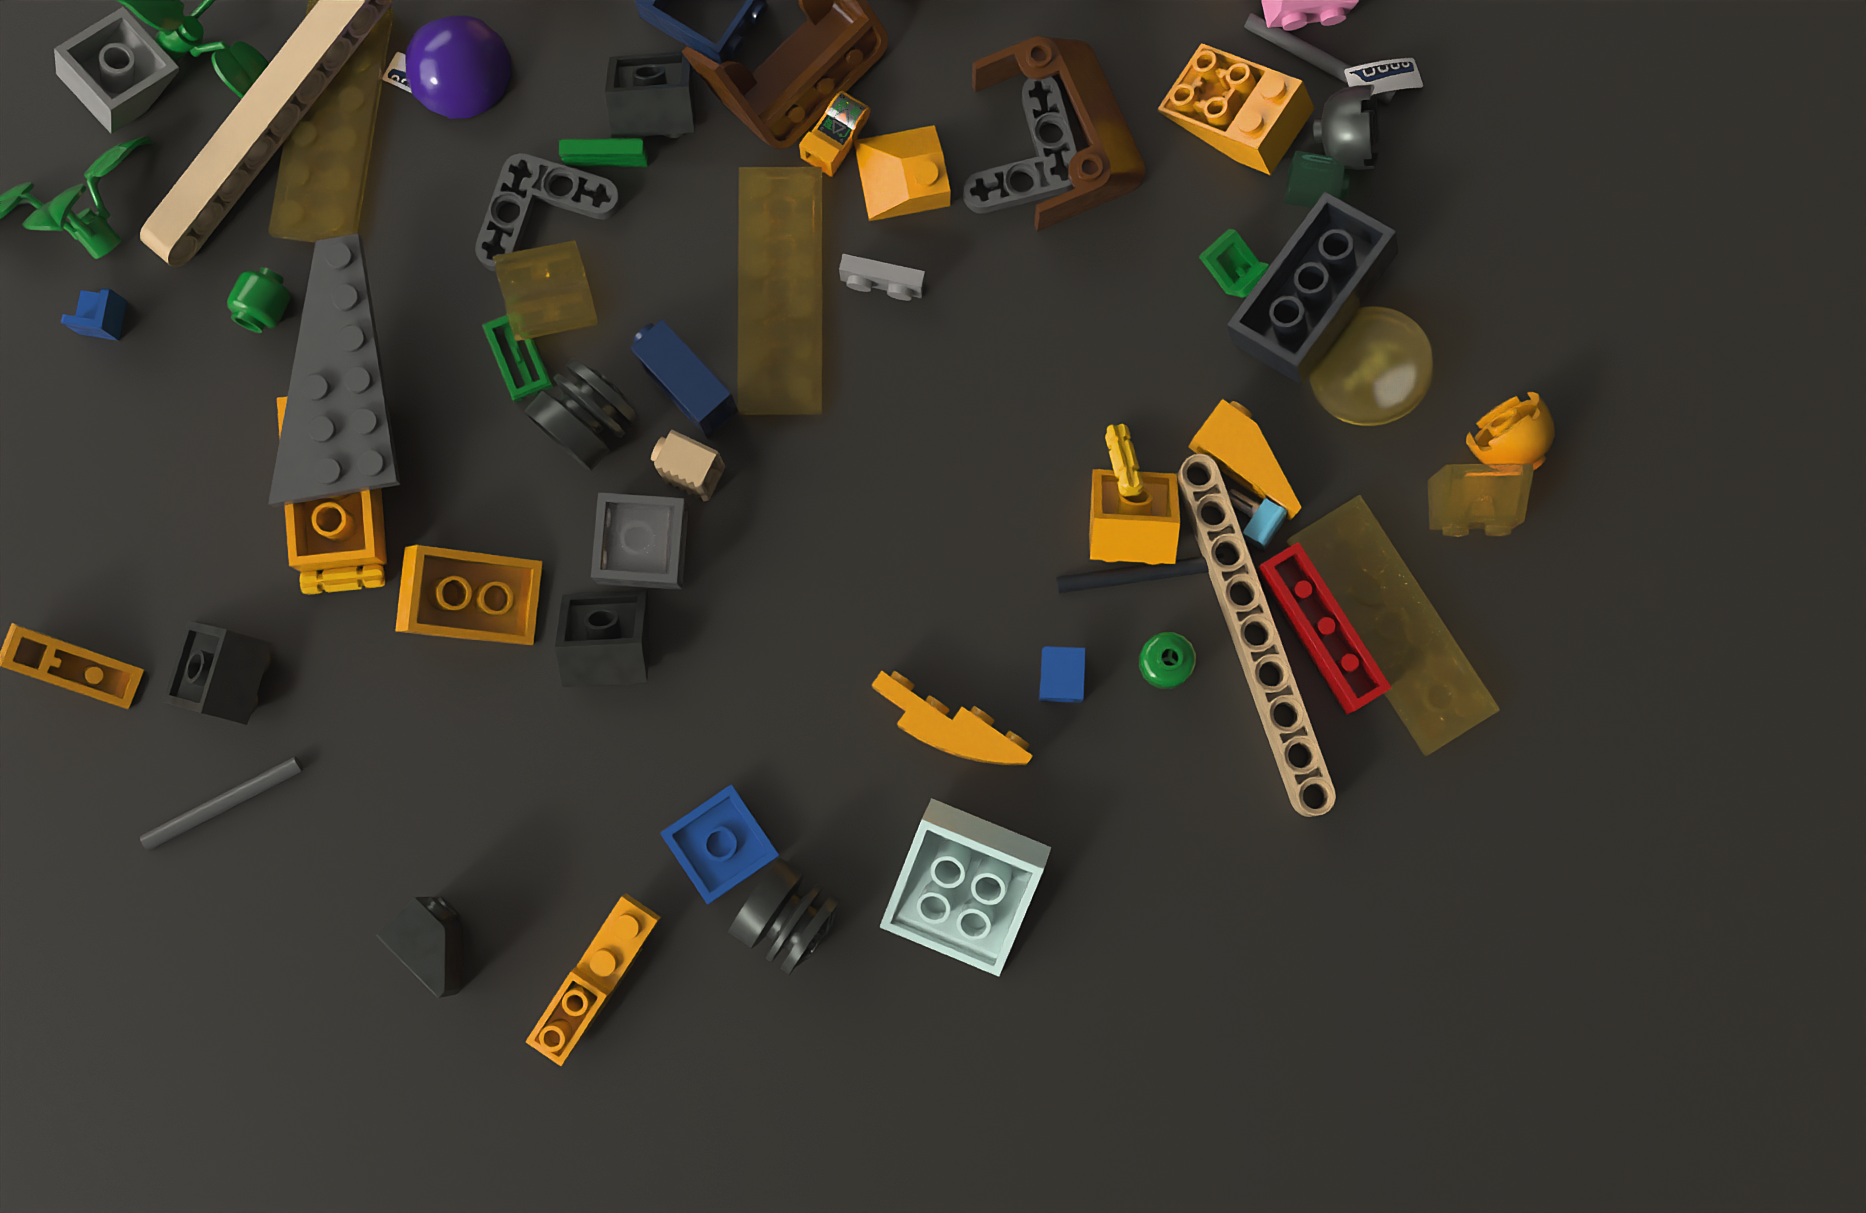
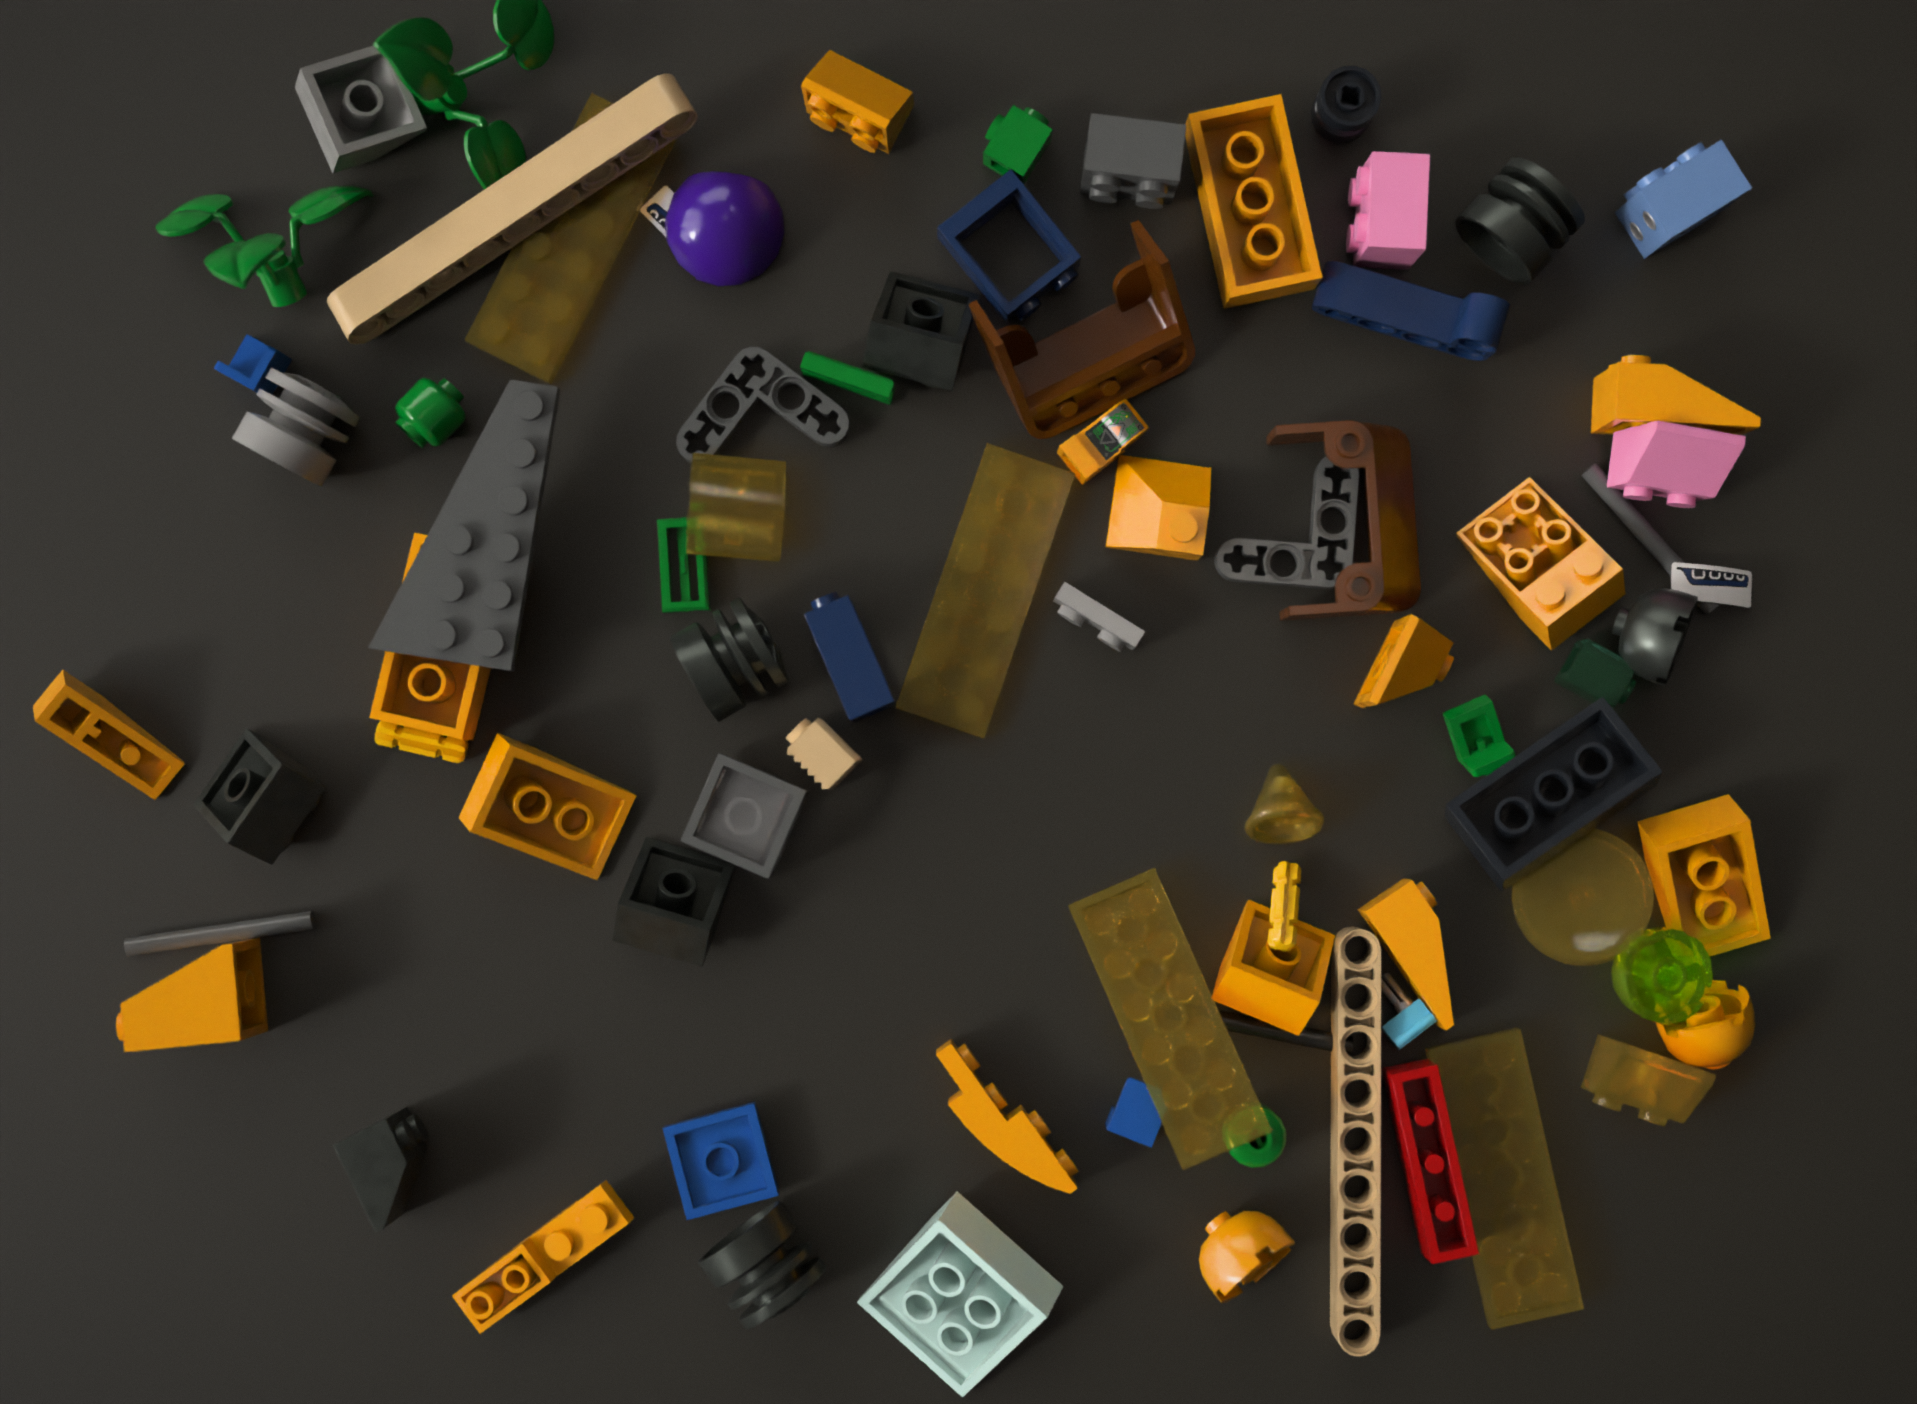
camera: 20 degrees right, 5 degrees up
(148, 345) = (296, 426): none -> light grey wheel
(220, 860) = (201, 1003): none -> light orange slope
(1060, 585) = (1169, 1019): none -> clear yellow plate
(1108, 382) = (1282, 811): none -> clear yellow hat
(1154, 223) = (1406, 663): none -> light orange slope
(1192, 762) = (1241, 1251): none -> light orange cylinder
(1459, 403) = (1662, 975): none -> clear neon green cylinder
(1468, 317) = (1707, 874): none -> light orange slope

